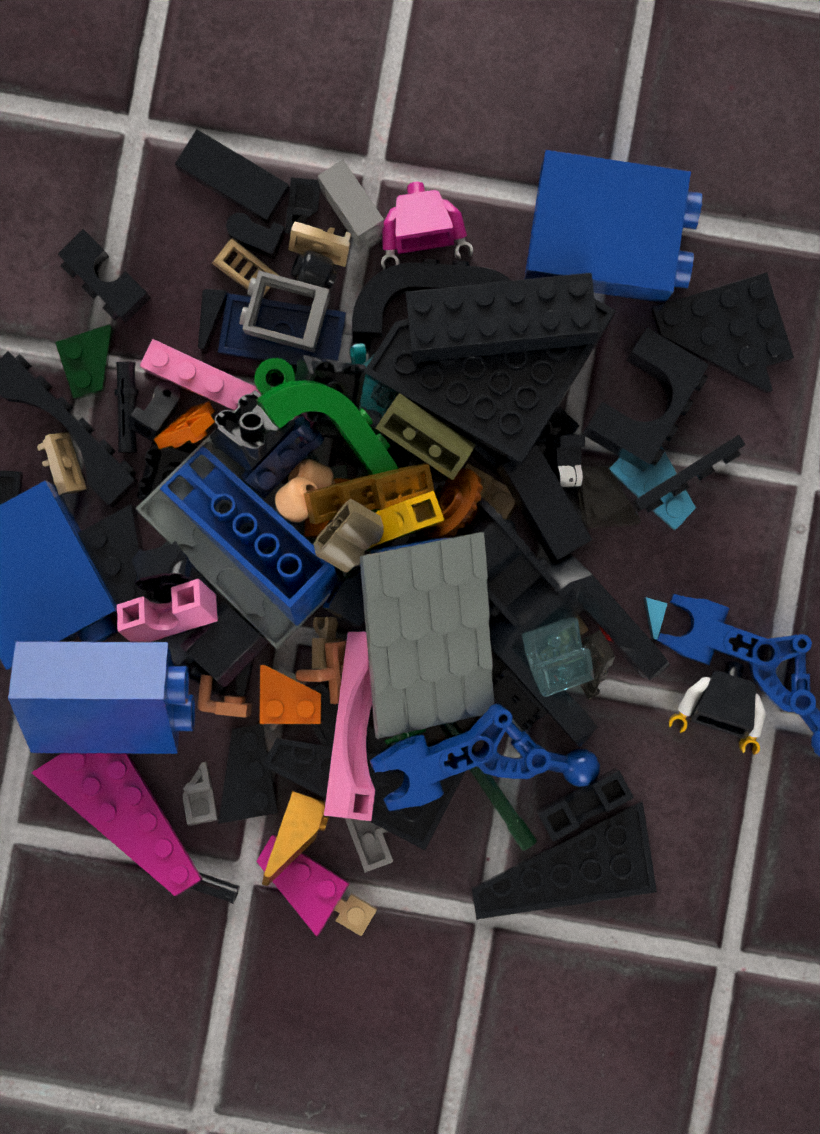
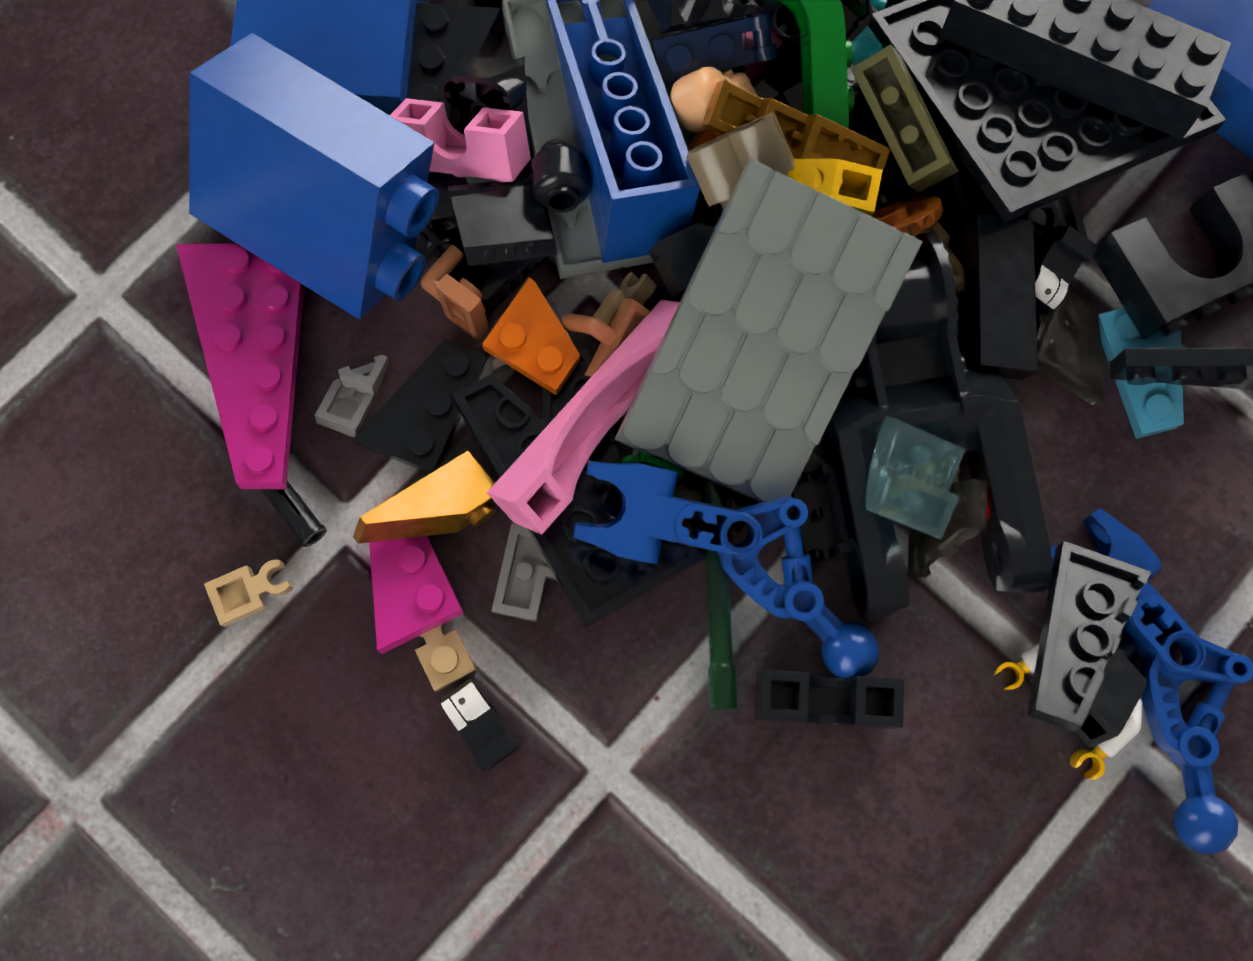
camera: 30 degrees right, 10 degrees down
(215, 951) = (242, 593): none -> tan plate
(243, 598) = (560, 177): none -> black head
(399, 939) = (479, 725): none -> black leg
(588, 867) = (785, 788): black wing -> none
(655, 613) = (1060, 516): medium azure piece -> none
(699, 676) = (1080, 631): none -> wing

